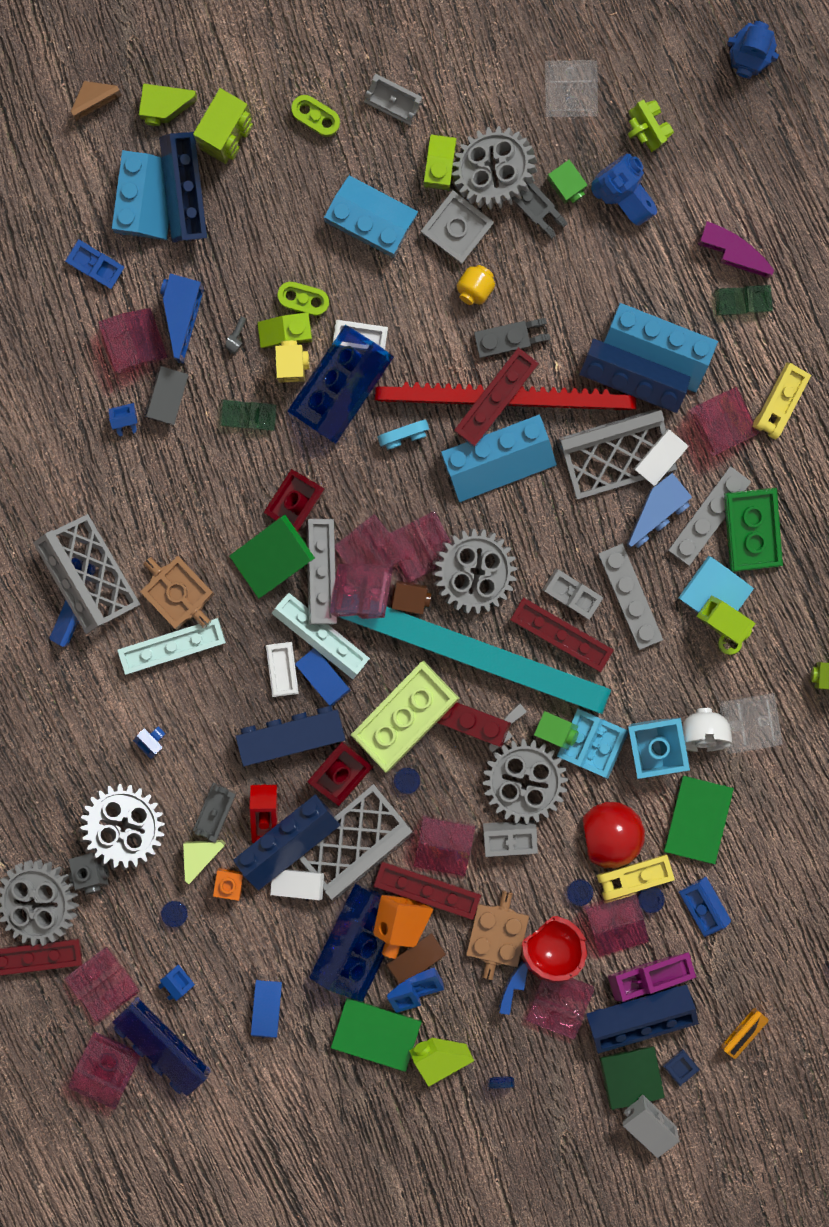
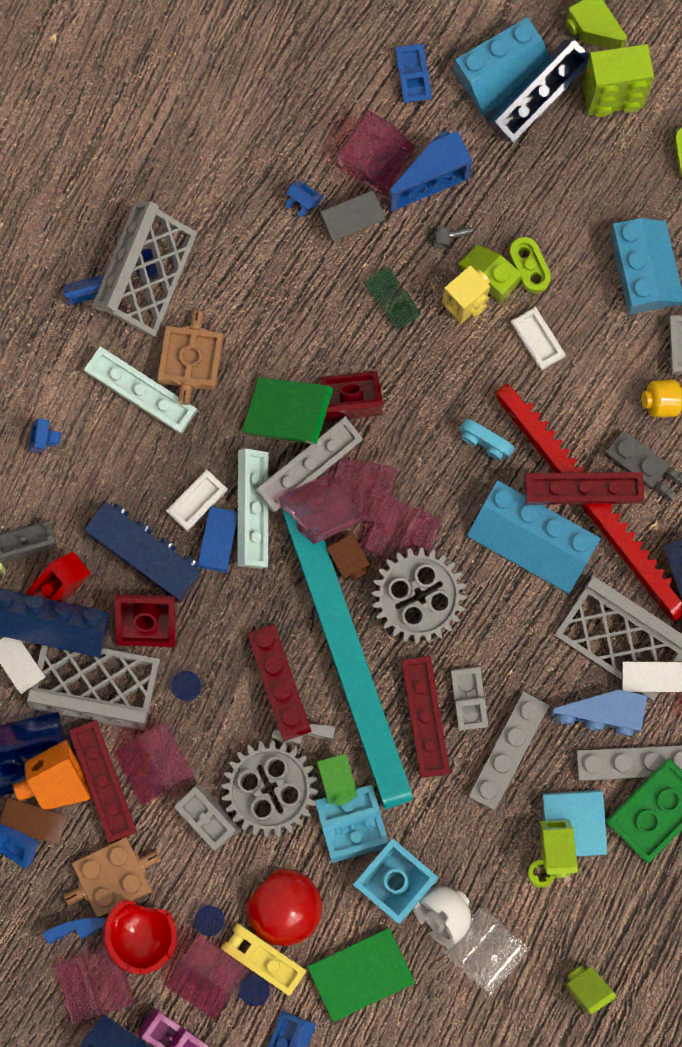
camera: 50 degrees right, 10 degrees down
(340, 384) = (483, 353): clear blue slope -> none
(405, 716) = (241, 636): yellowish green tile -> none

